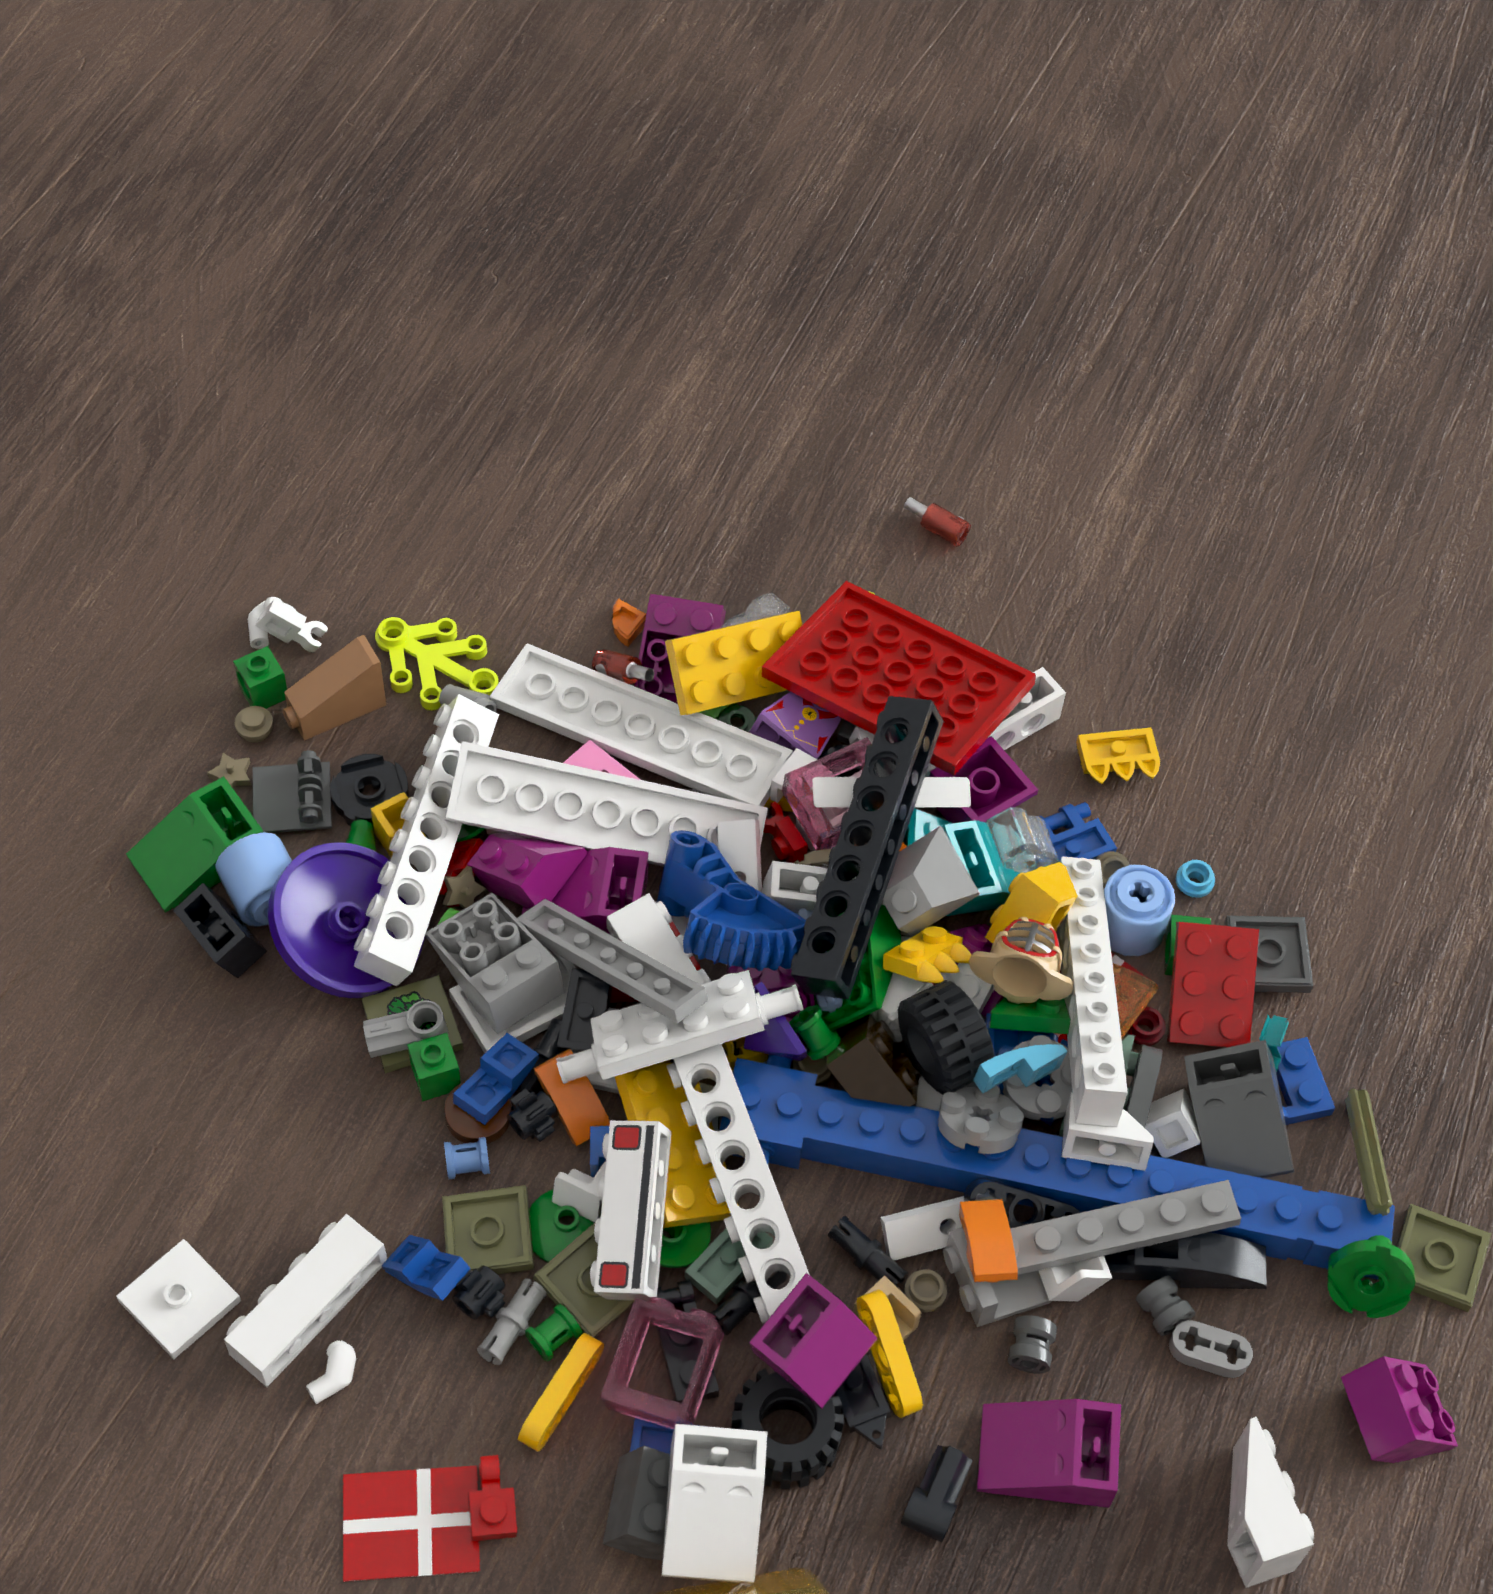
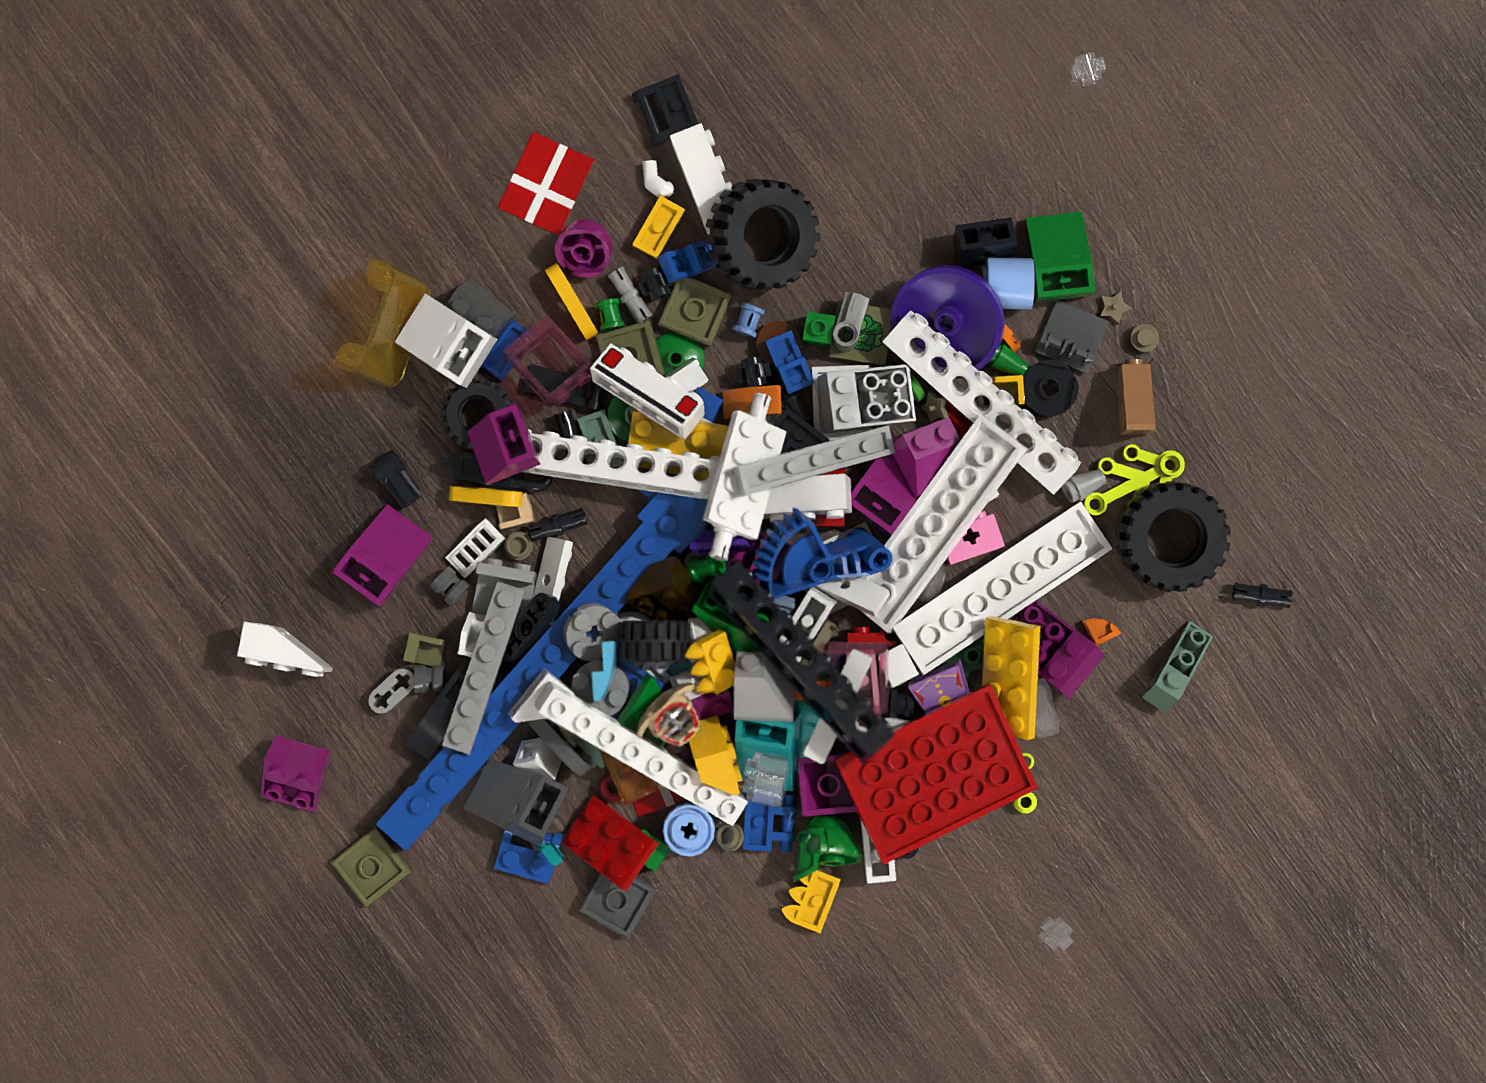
camera: 125 degrees right, 30 degrees up
(178, 1298) = (750, 114): white plate -> none
(215, 1398) = (674, 105): none -> black plate
(257, 636) = (1231, 382): white arm -> none
(261, 678) = (1174, 356): green brick -> none
(287, 625) = (1215, 393): white plate -> none
(349, 1209) = (796, 239): none -> black tyre
(398, 1332) = (658, 227): none -> yellow plate
(478, 1403) = (584, 248): none -> magenta cylinder
(484, 551) = (1208, 549): none -> black tyre
(491, 1509) = (527, 230): red plate -> none
(493, 492) = (1262, 595): none -> black pin
(621, 666) = (1056, 600): clear red piece -> none
(628, 529) = (1177, 667): none -> sand green slope
(940, 521) = (1070, 897): clear red piece -> none
(966, 1328) = (468, 540): none -> white slope
(987, 513) = (1056, 933): none -> clear gear
(988, 1241) = (511, 586): orange slope -> none
(1056, 765) = (826, 842): none -> green head
(1132, 1337) = (424, 649): none -> olive panel
(1199, 870) = (692, 898): medium azure plate -> none
(1368, 1152) = (450, 862): olive axle -> none
(1373, 1257) = (374, 808): green plate -> none

